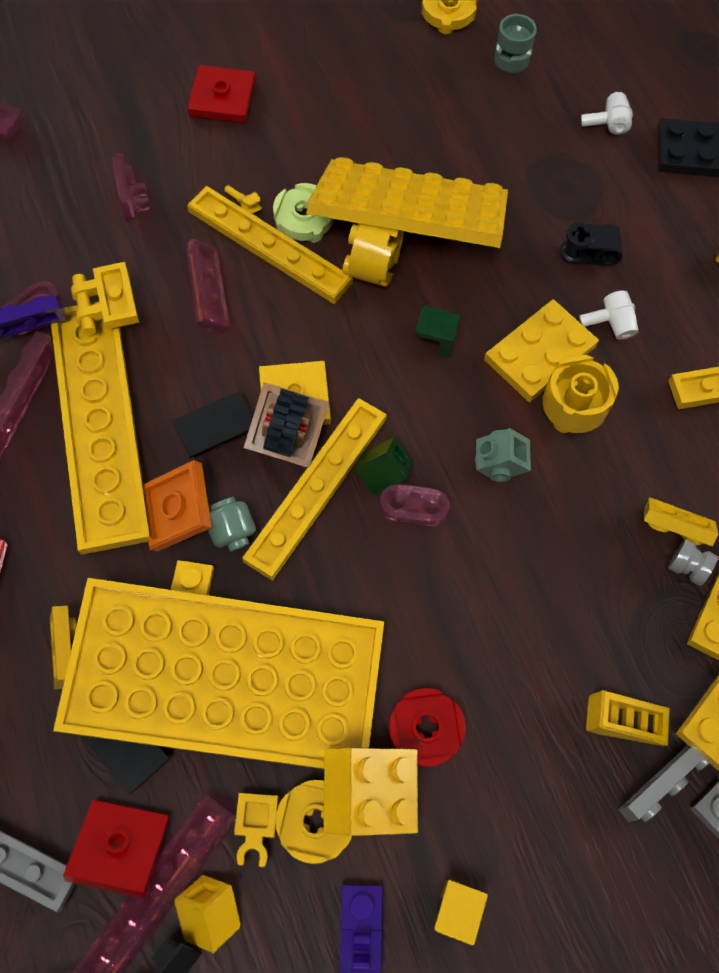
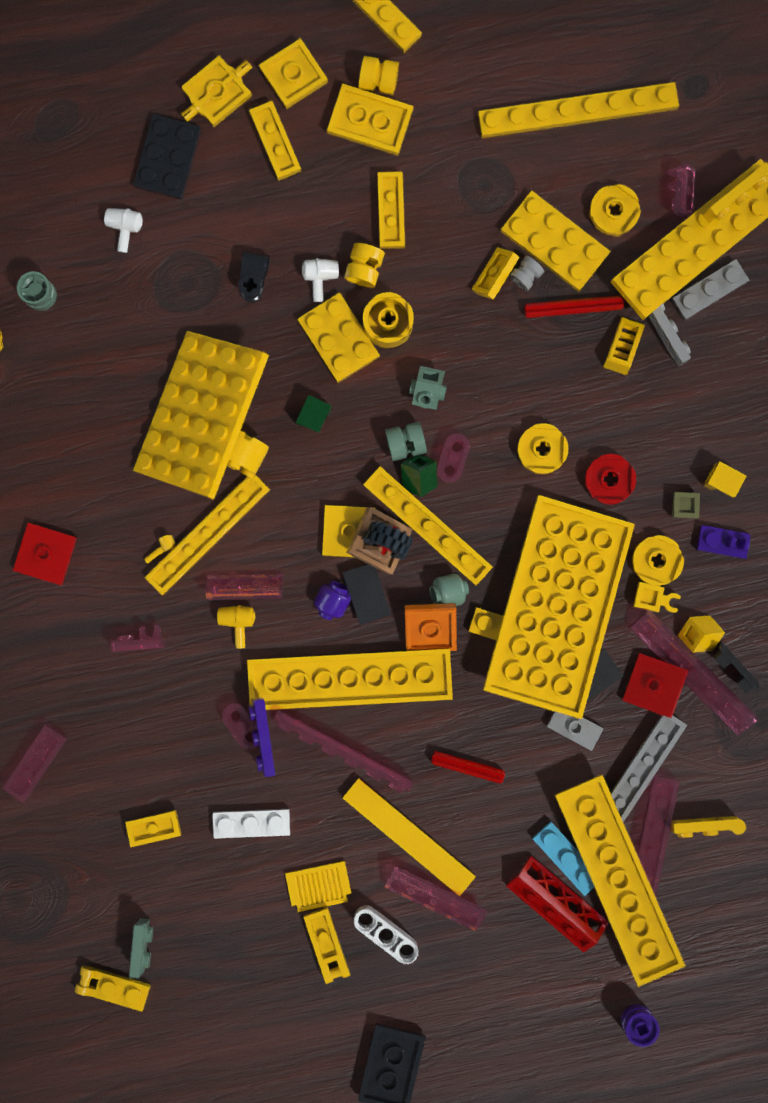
camera: 75 degrees left, 20 degrees up
(41, 744) = (577, 730): none -> light grey plate
(62, 631) = (508, 713): yellow plate -> none
(115, 298) = (251, 657): yellow plate -> none
(167, 285) = (237, 617): none -> yellow piece
(200, 383) = (332, 600): none -> dark purple head
(293, 224) = (183, 516): yellowish green plate -> none
(370, 791) = (649, 522): yellow brick -> none
(408, 854) = (686, 505): none -> olive plate
(425, 439) = (414, 440): none -> sand green wheel
(465, 607) = (552, 438): none -> yellow plate
(631, 358) = (364, 265): none -> yellow wheel
(665, 639) = (574, 306): none -> red axle

